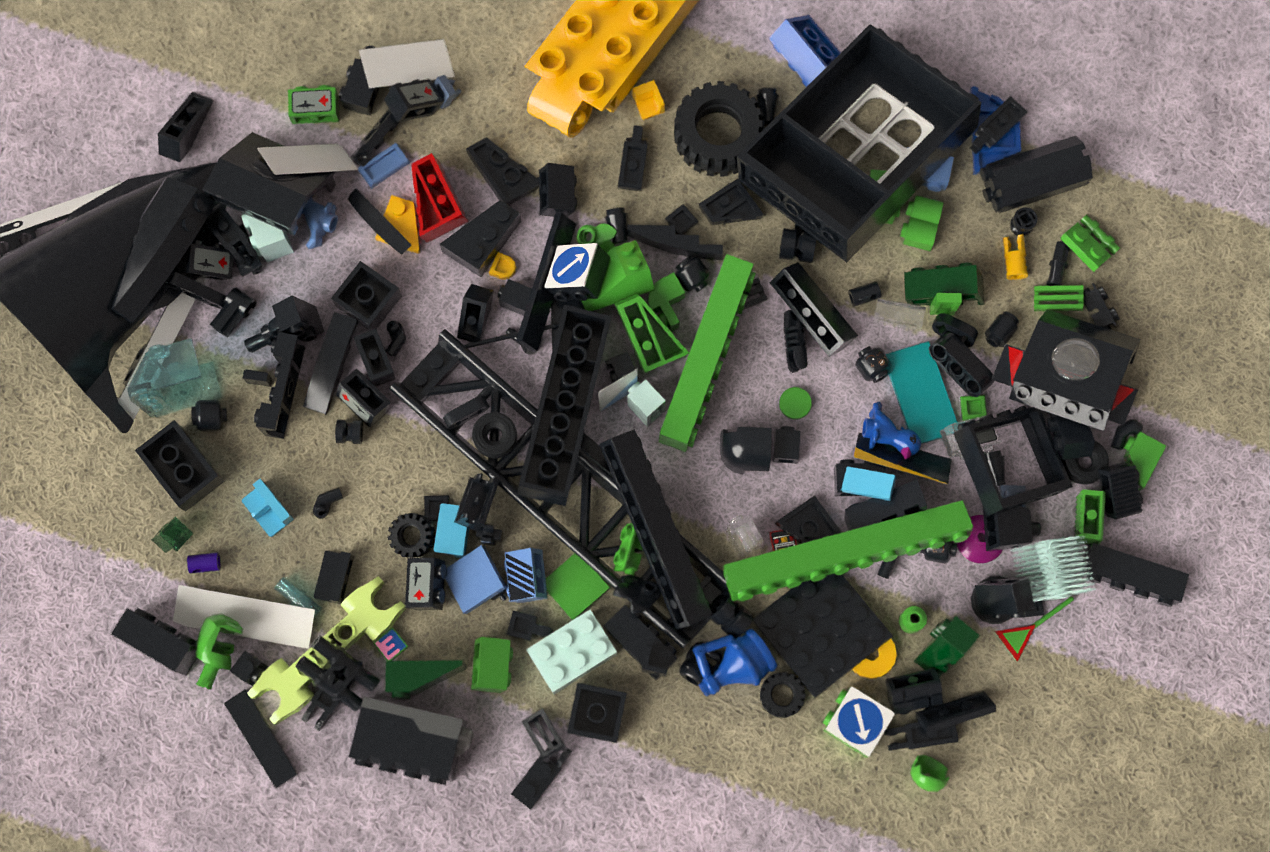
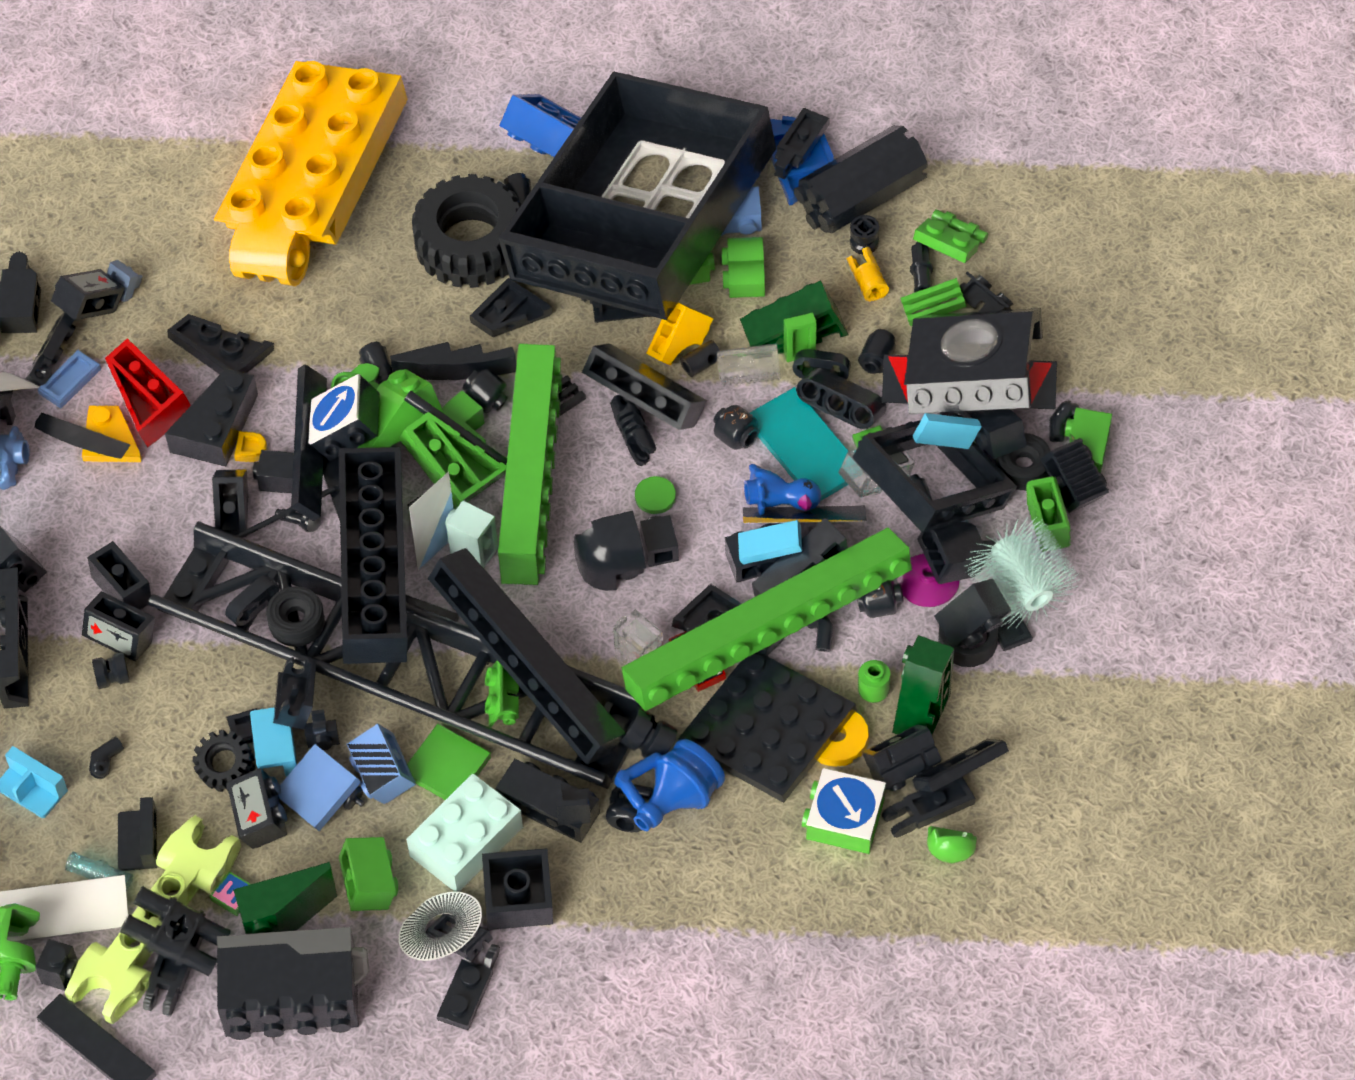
camera: 15 degrees left, 20 degrees down
(330, 363) = (65, 602): black slope -> none
(366, 296) = (89, 515): black brick -> none
(397, 337) = (139, 553): black arm -> none
(406, 63) = (44, 266): white sticker -> none
(524, 627) = (397, 823): black plate -> none
(538, 743) = (467, 920): none -> sticker
(557, 189) = (291, 343): black brick -> none
(633, 161) = (376, 294): black hinge -> none
(637, 590) = (531, 735): black plate -> none
(648, 100) = (374, 225): yellow panel -> none
(658, 310) = (424, 407): none -> black bar
(682, 219) = (457, 337): black tile -> none
(796, 687) = (742, 826): black tyre -> none
(797, 245) = (592, 327): black wheel -> none
(858, 269) = (680, 330): none -> yellow arch
(1017, 638) = (1009, 673): piece -> none
(1033, 430) = (946, 431): none -> medium azure tile
(1135, 574) = (1125, 562): black brick -> none

